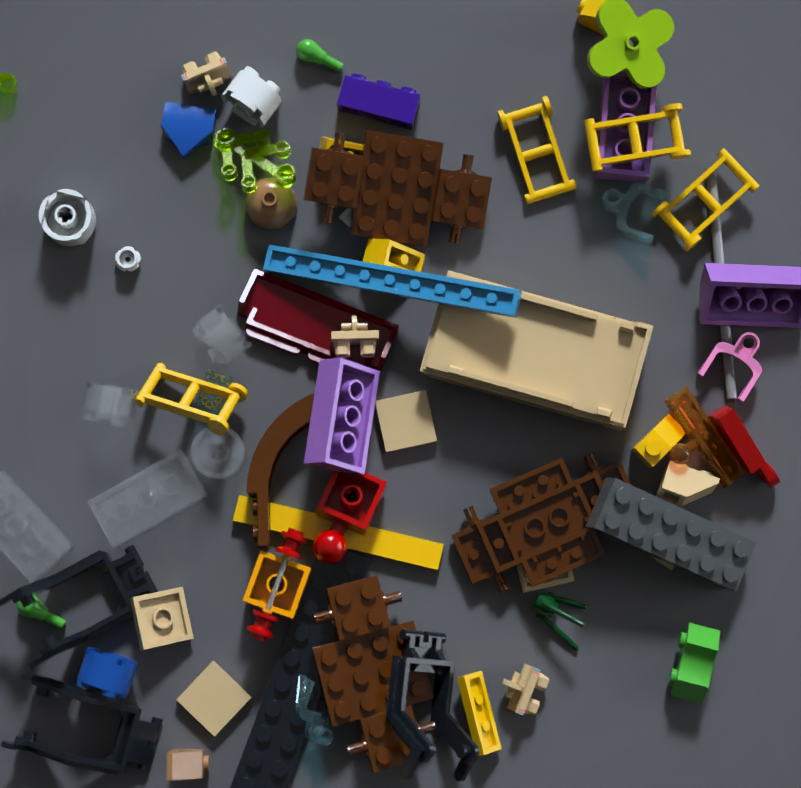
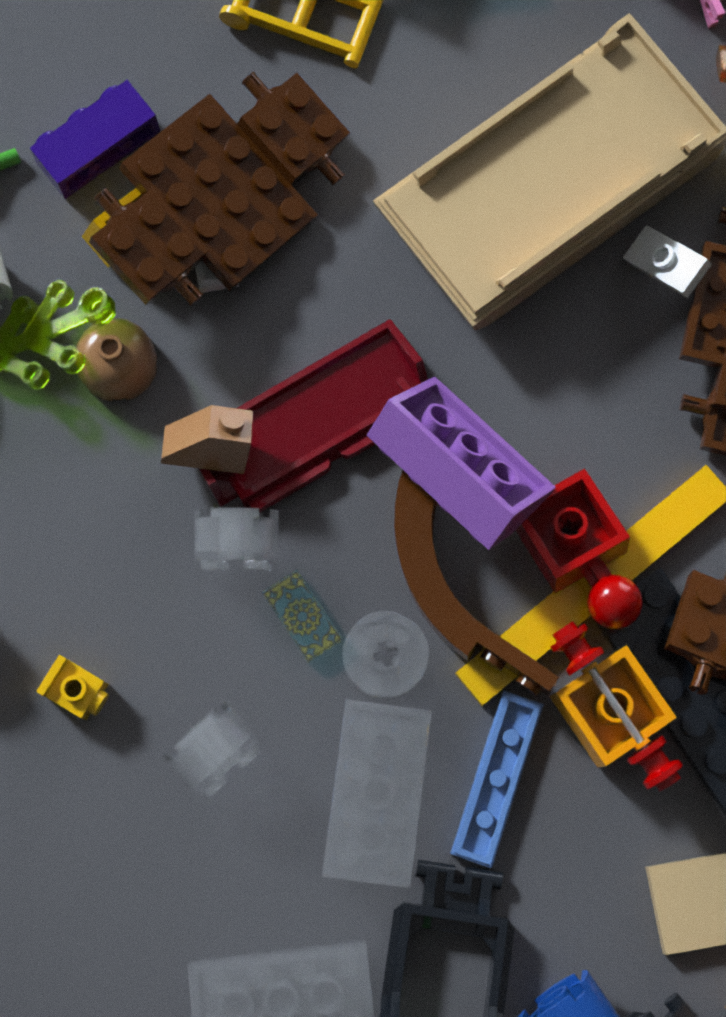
camera: 60 degrees left, 5 degrees down
(98, 321) = (59, 678): none -> yellow brick
(121, 257) = (34, 581): white plate -> none
(161, 618) = (545, 894): tan tile -> none
(202, 554) = (496, 779): none -> medium blue tile
(216, 423) = (349, 626): yellow piece -> none
(261, 283) = (210, 440): none -> medium nougat slope
(351, 335) = (362, 376): tan hips -> none
(393, 254) = (301, 262): yellow slope -> none
(393, 281) = (338, 270): dark azure plate -> none
(406, 421) = (517, 397): tan tile -> none
(537, 445) = (667, 261): none -> white plate

